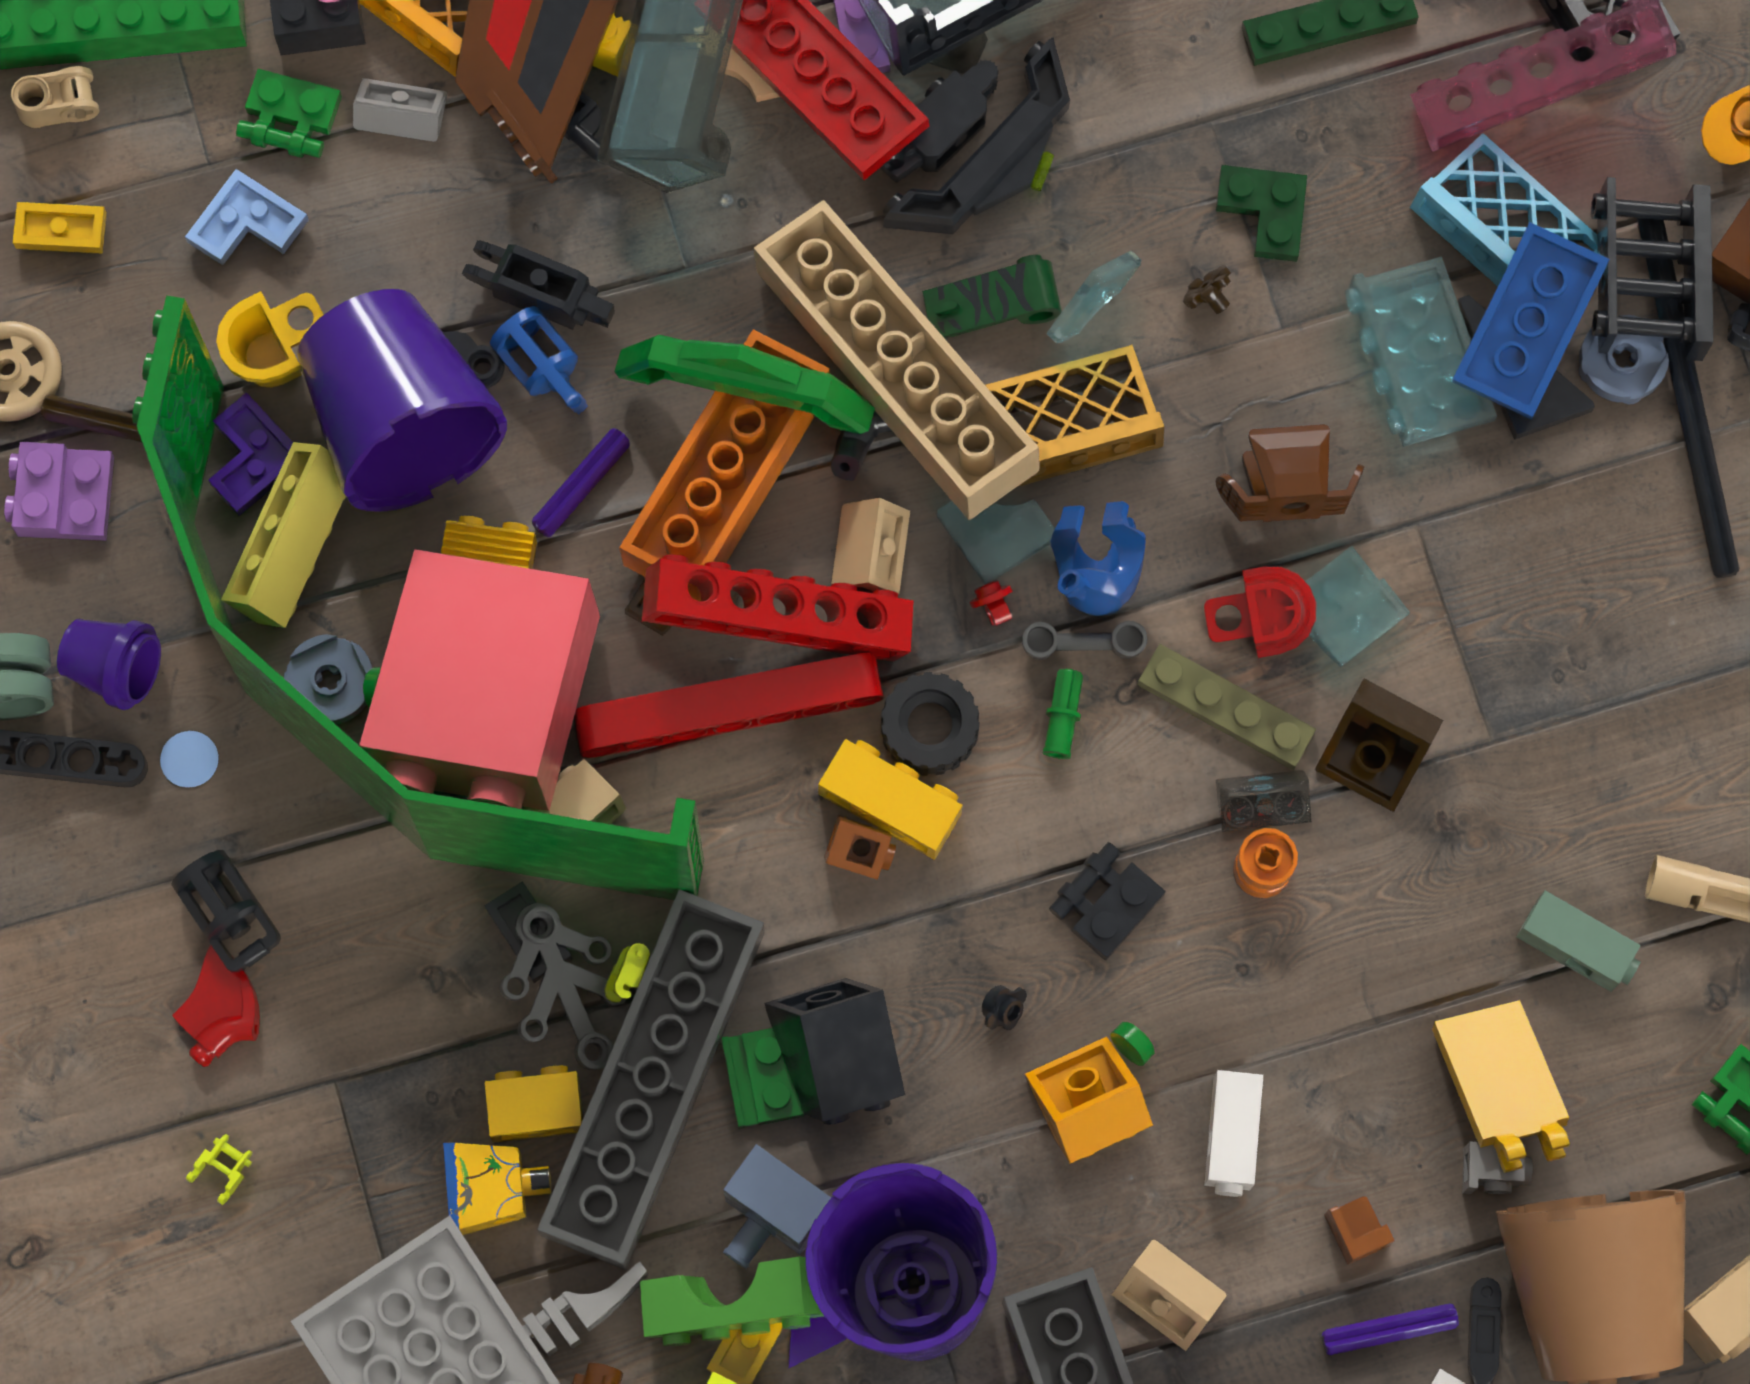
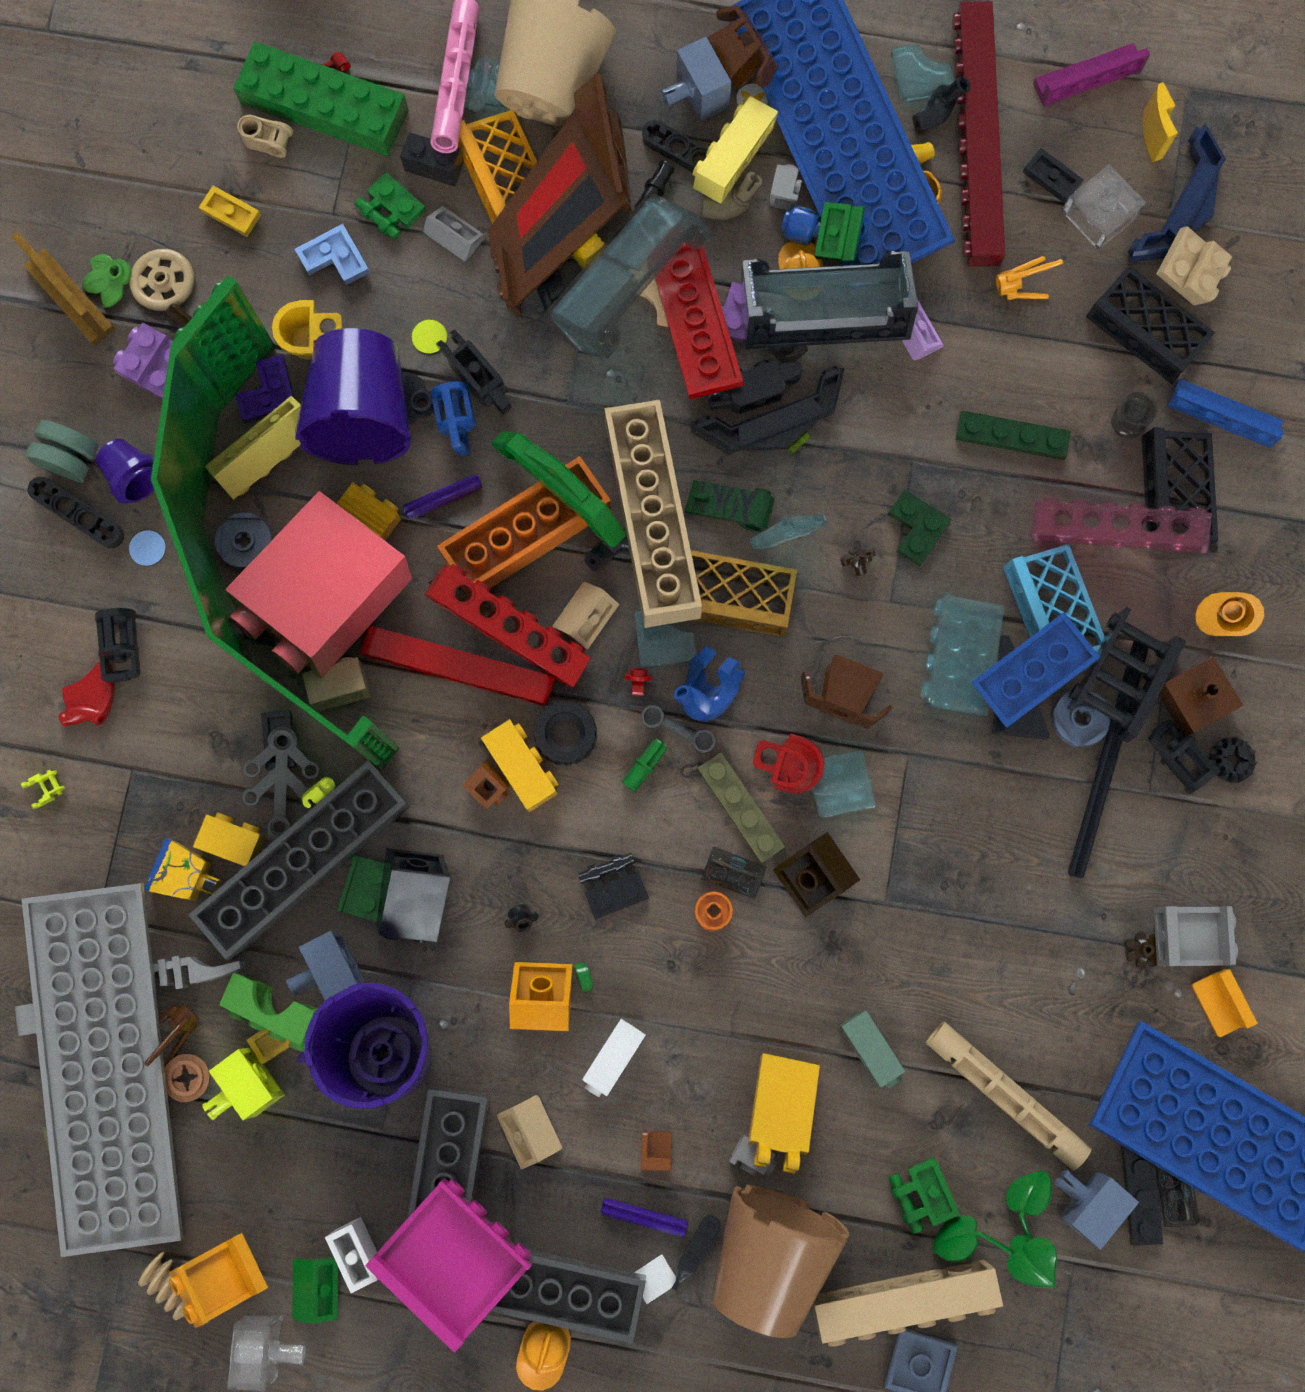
camera: 30 degrees right, 5 degrees up
(440, 269) = (427, 334): none -> neon yellow sticker

